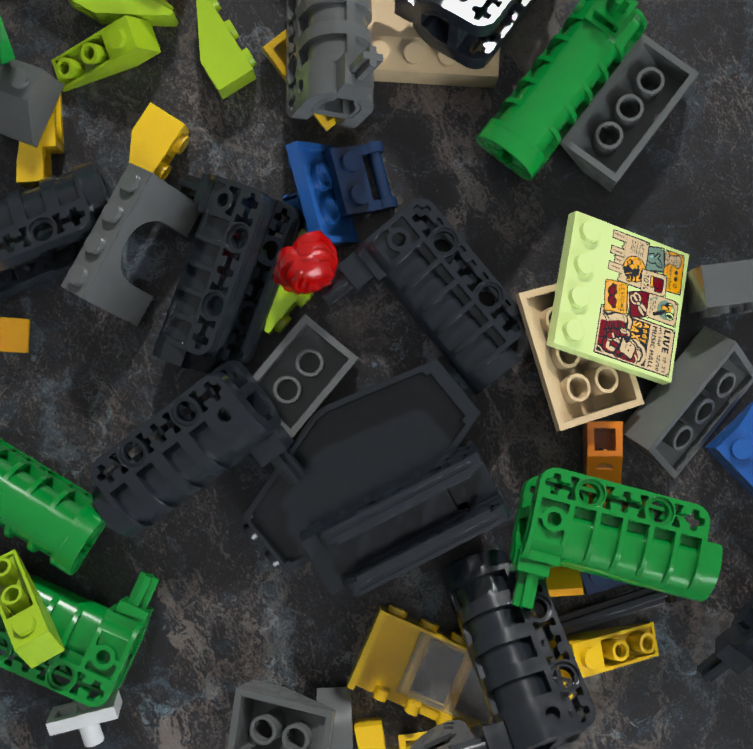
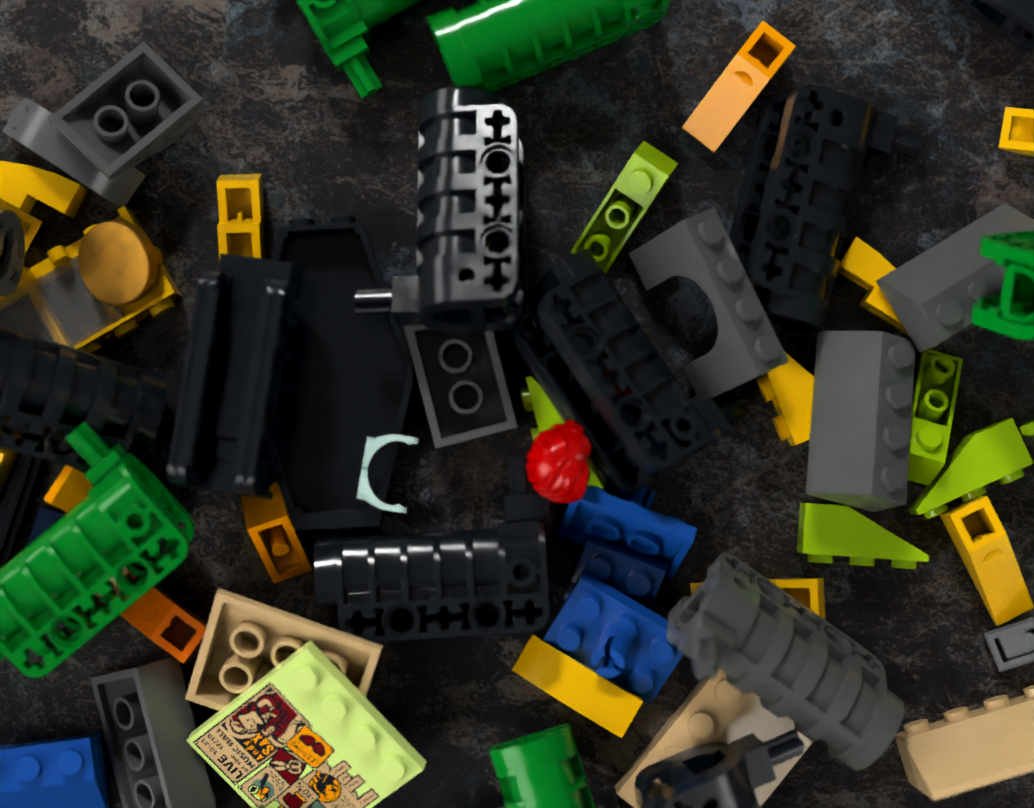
camera: 125 degrees right, 0 degrees up
(105, 352) = (625, 204): none -> lime slope
(135, 90) = (861, 419): none -> dark grey slope
(297, 604) = (241, 215): none -> yellow slope
(388, 662) = (118, 262): none -> pearl gold tile
(389, 400) = (371, 446): none -> light aqua cap
(397, 152) = (614, 637): none -> blue plate
(446, 154) = (577, 686): none -> yellow slope
(493, 423) = (274, 536): none -> light orange slope

